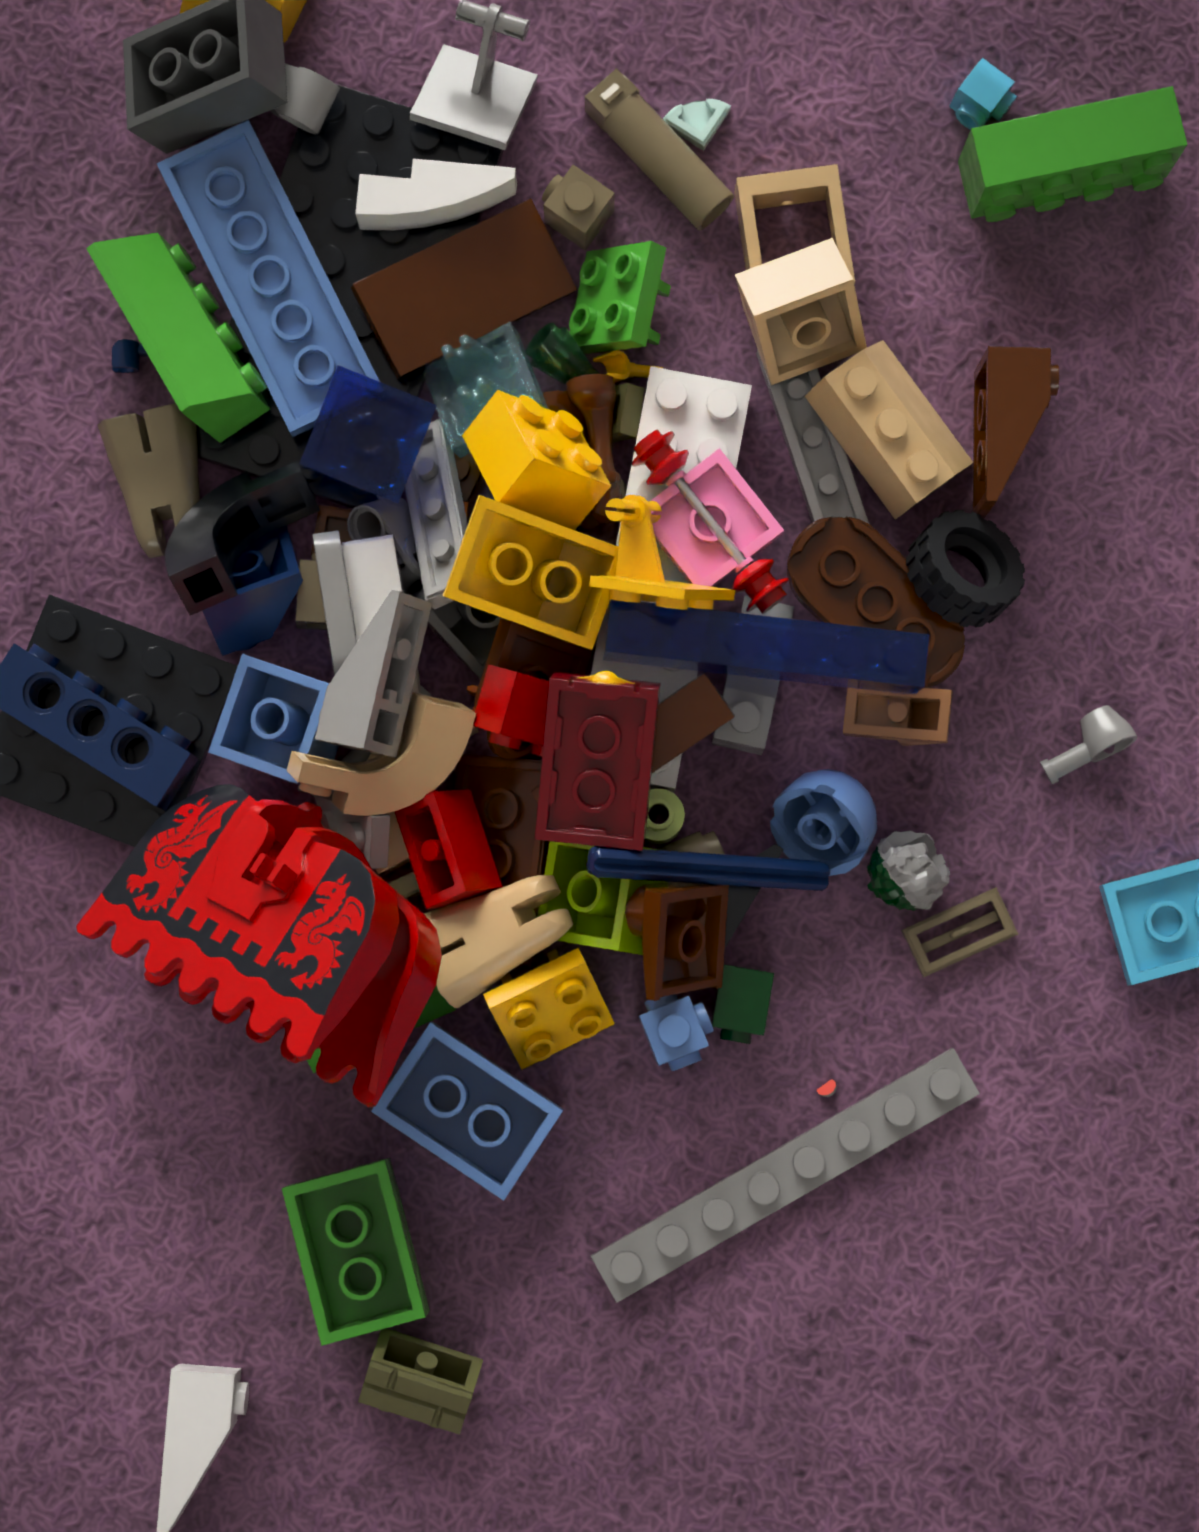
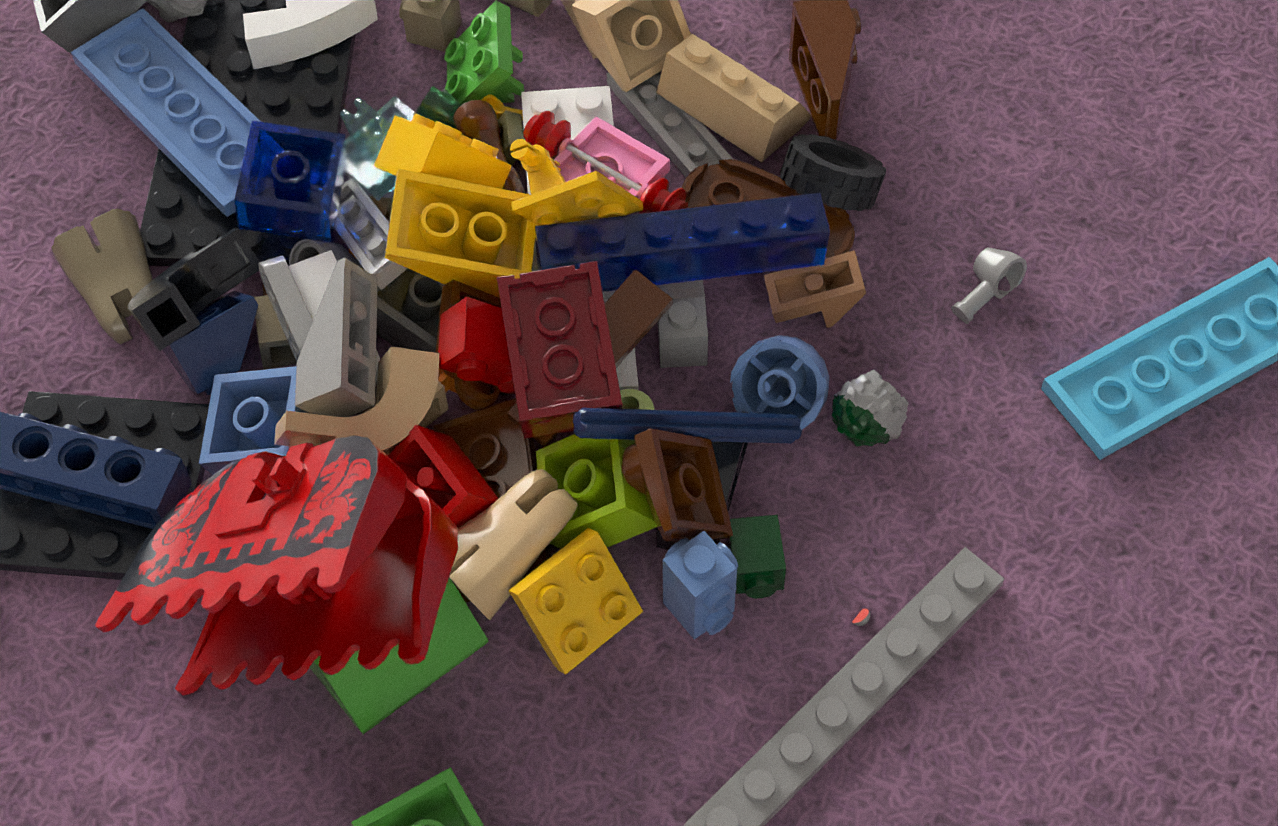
camera: 15 degrees left, 25 degrees down
(127, 356) = (70, 200): dark blue hand -> none
(181, 332) = (116, 160): bright green slope -> none
(463, 287) = (366, 66): reddish brown tile -> none
(467, 1110) = (522, 712): medium blue brick -> none
(1000, 913) = (906, 479): dark tan tile -> none

